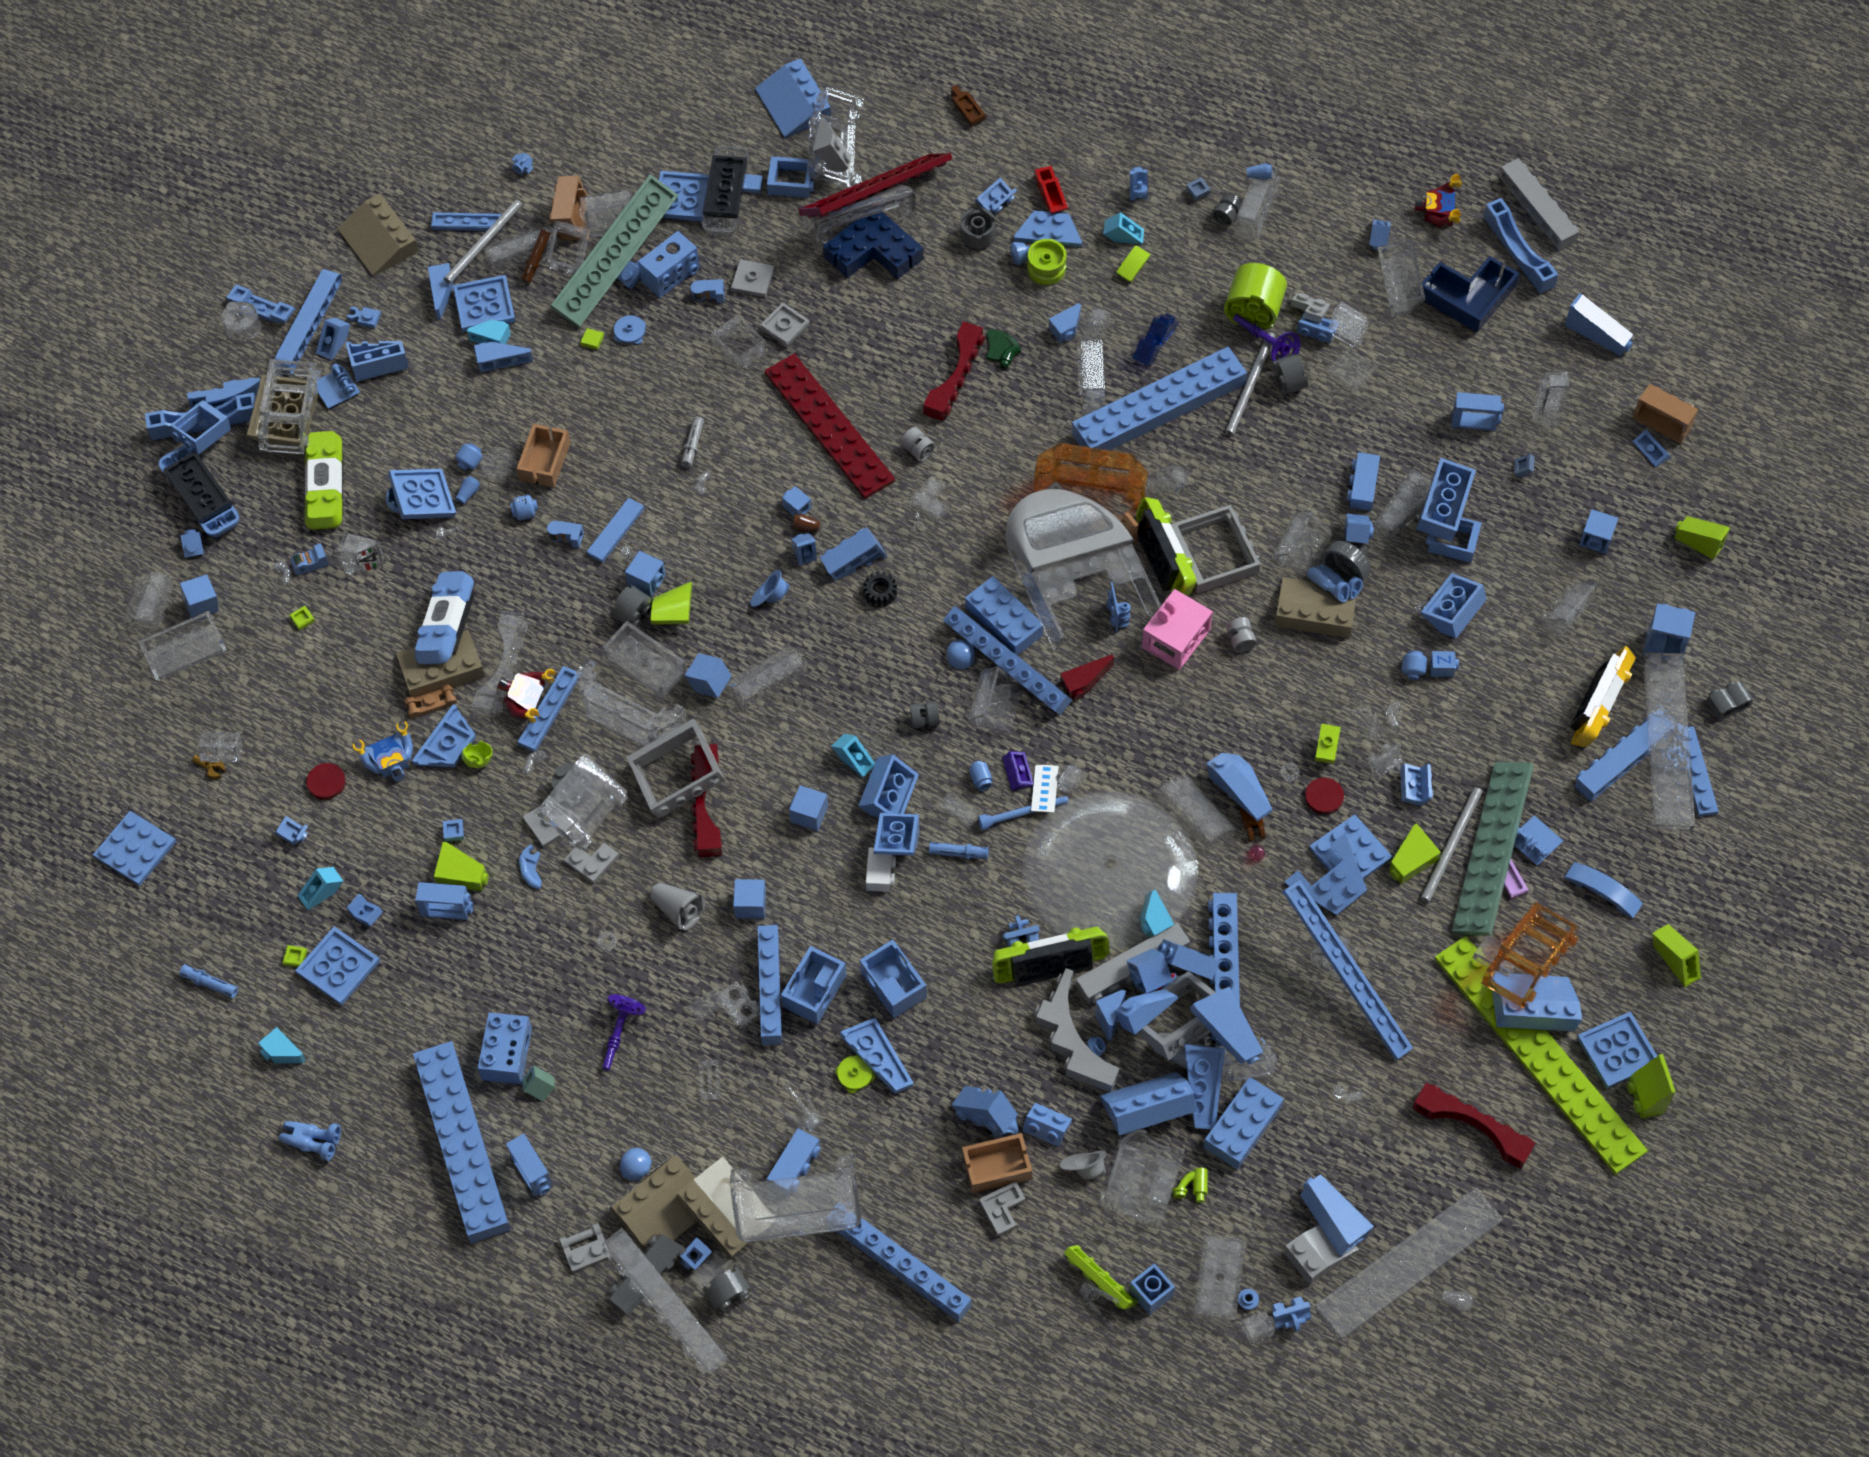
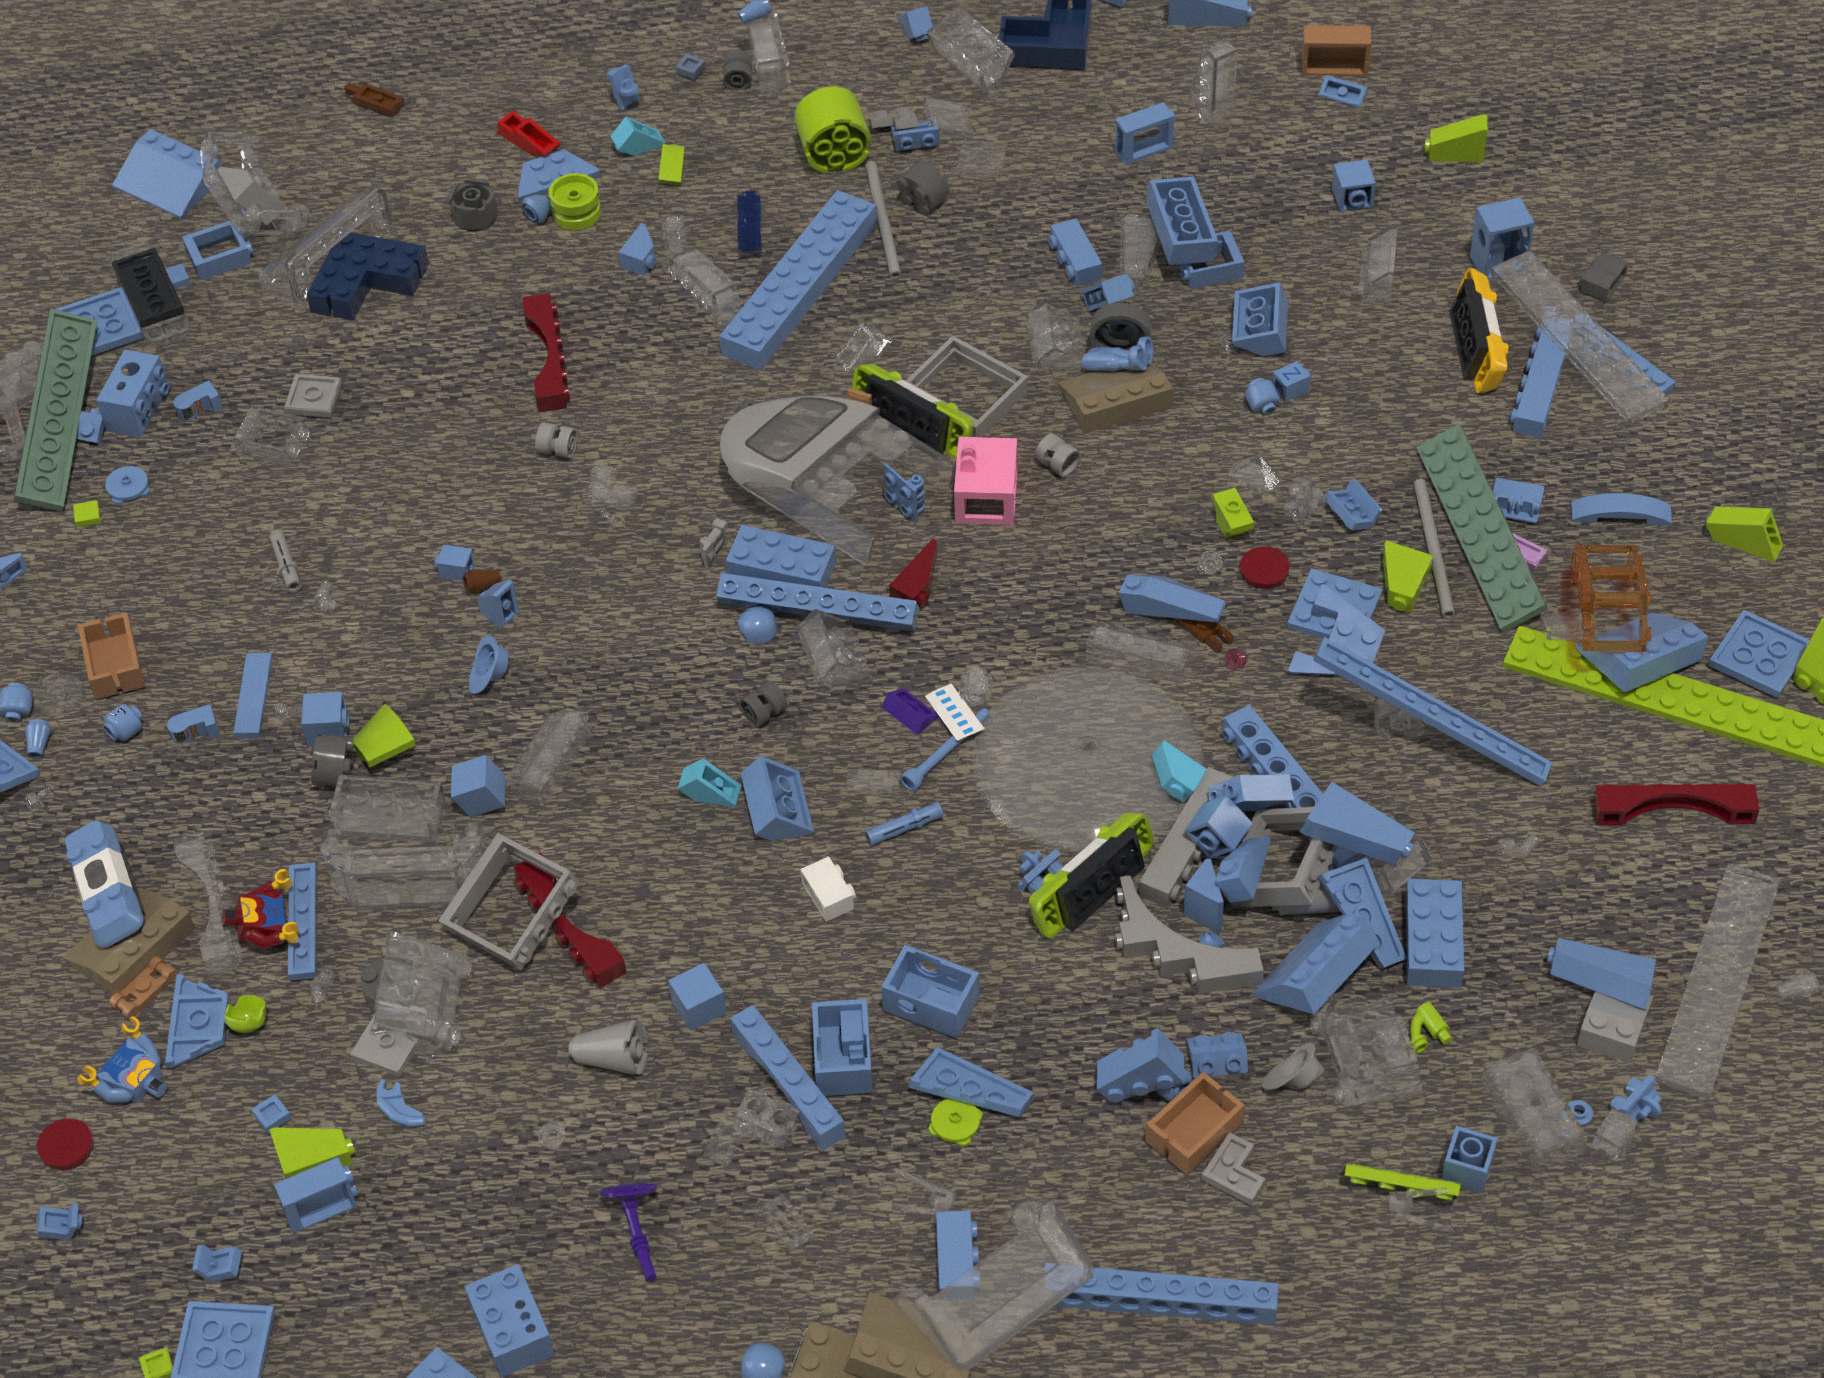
camera: 30 degrees left, 10 degrees down
(320, 886) = (138, 1266): medium azure slope -> none
(538, 1083) = (577, 1340): sand green panel -> none
(592, 866) = (473, 1066): light grey plate -> none
(752, 278) = (241, 368): light grey plate -> none
(808, 808) = (697, 865): medium blue head -> none
(830, 426) = (438, 471): dark red plate -> none
(852, 553) = (561, 581): medium blue wedge -> none
(875, 185) = (329, 205): dark red plate -> none
(880, 579) = (612, 594): black tyre -> none
(897, 834) = (824, 836): medium blue slope -> none
(965, 579) = (712, 543): none -> light grey piece
(981, 775) = (873, 734): medium blue brick -> none
(995, 196) = (470, 165): medium blue bracket -> none
(1002, 347) = (582, 307): dark green arm -> none
(1052, 470) = (781, 382): clear orange windscreen -> none
(1277, 345) = (891, 167): dark purple dish -> none
(1391, 714) = (1274, 456): clear arm -> none
(1524, 465) = (1229, 163): sand blue plate -> none

